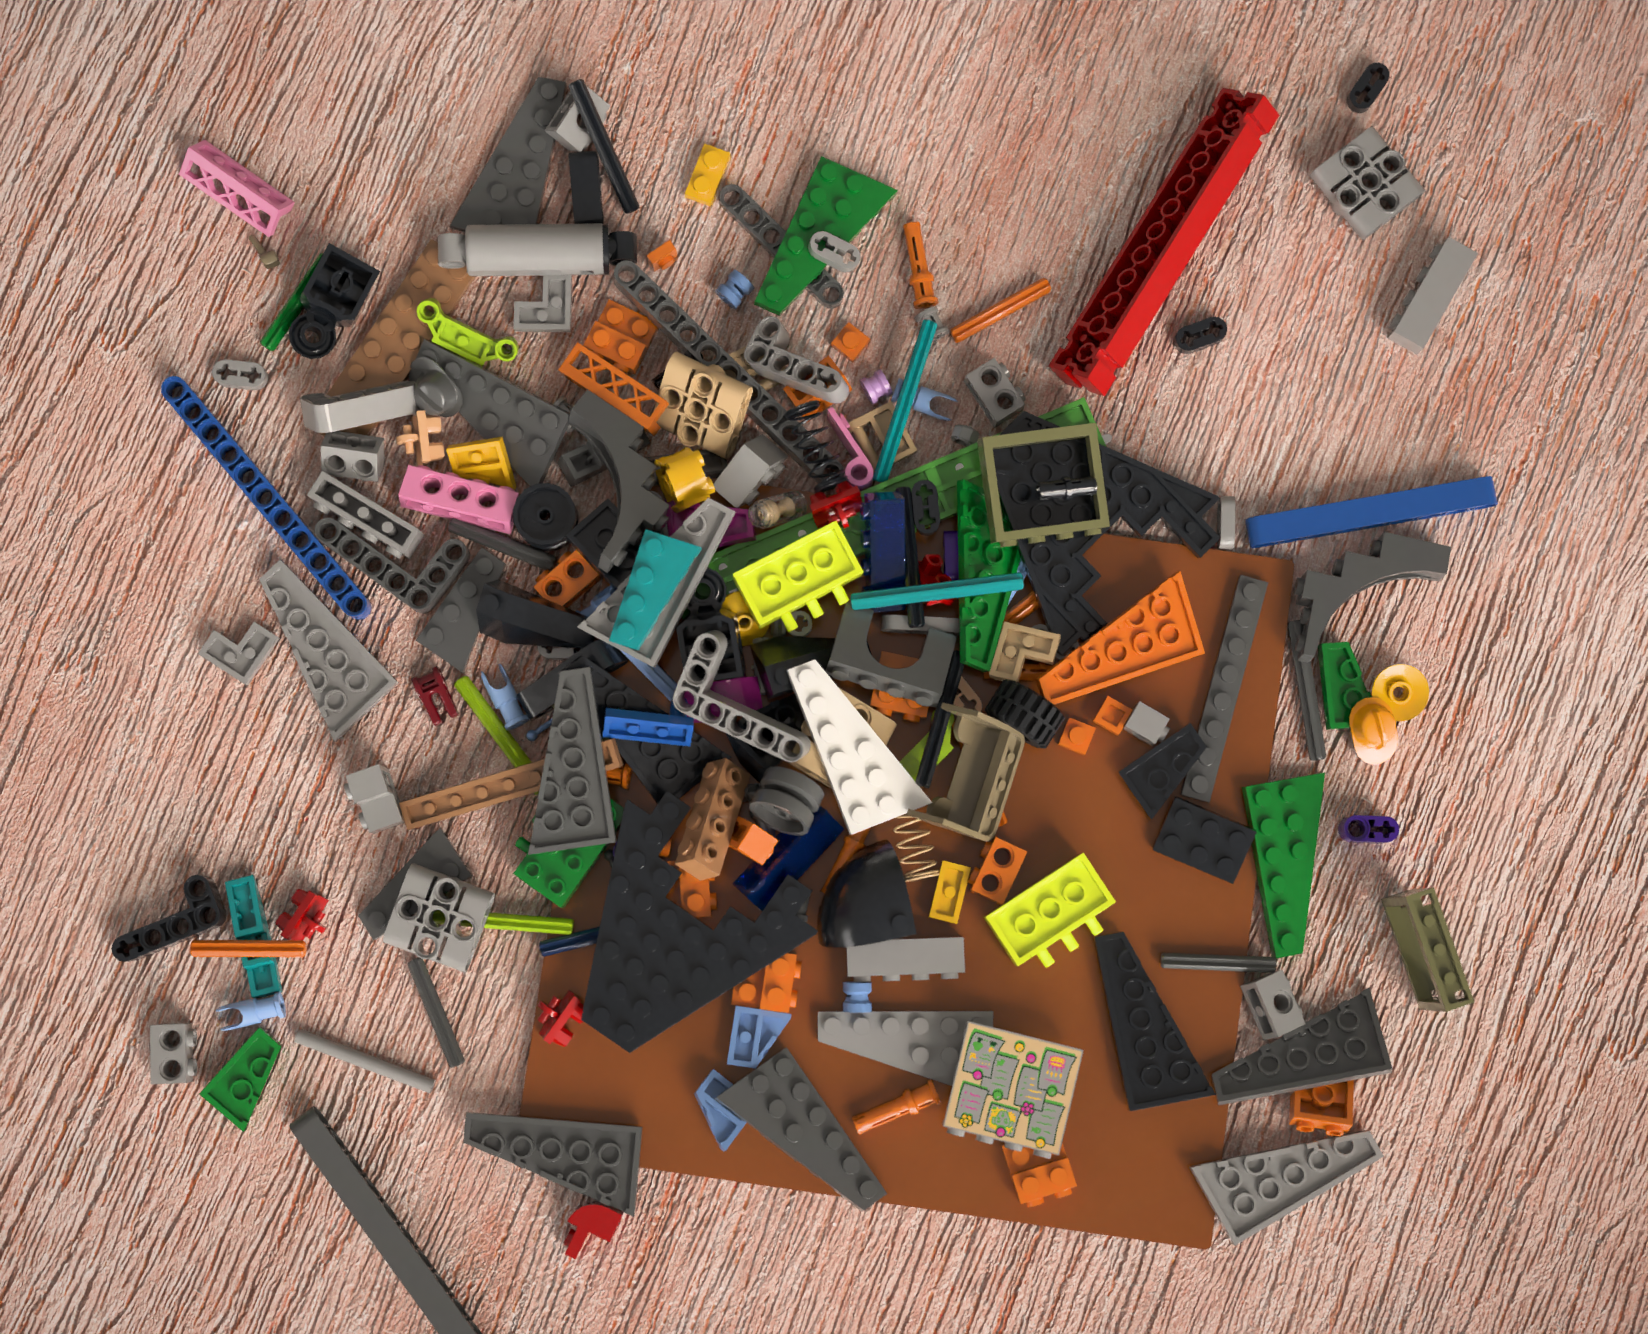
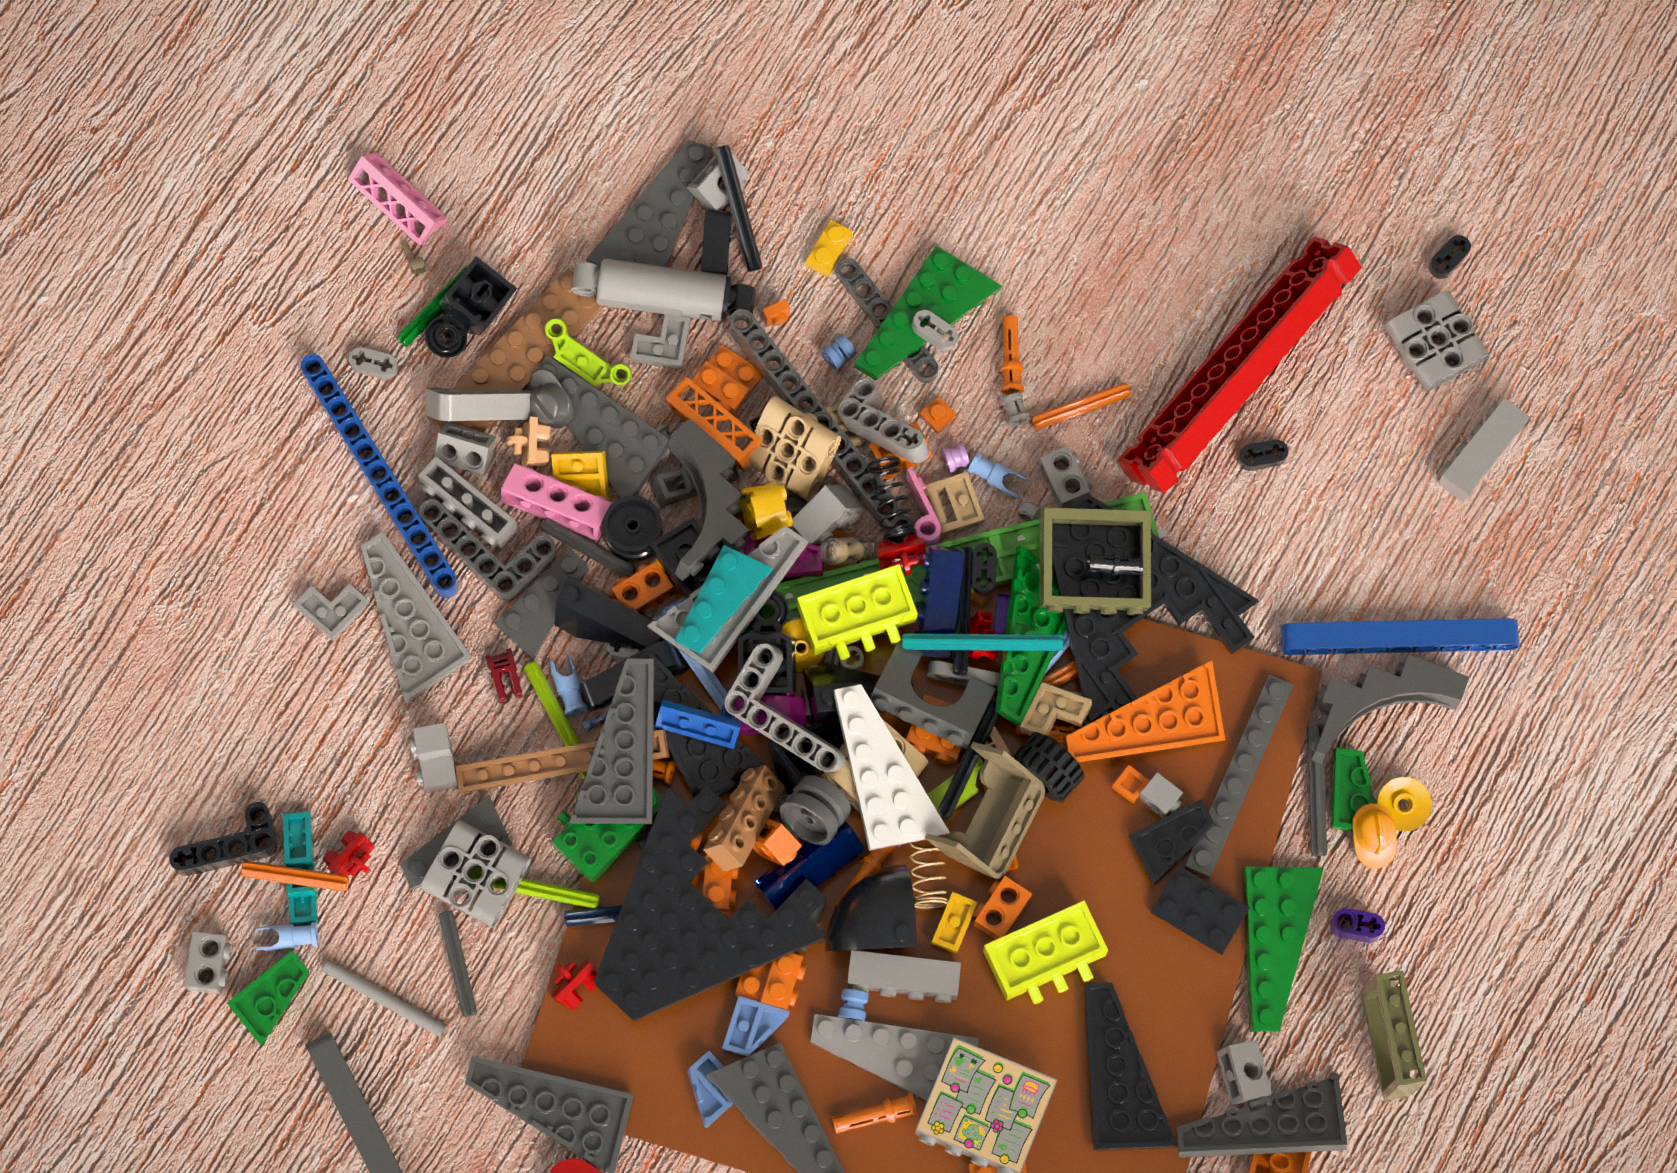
camera: 10 degrees right, 10 degrees down
(905, 401) = (980, 471): teal axle -> none
(1076, 736) = (1094, 799): orange plate -> none
(1218, 962) = (1197, 1026): dark grey axle -> none
(1226, 522) = (1262, 626): light grey beam -> none

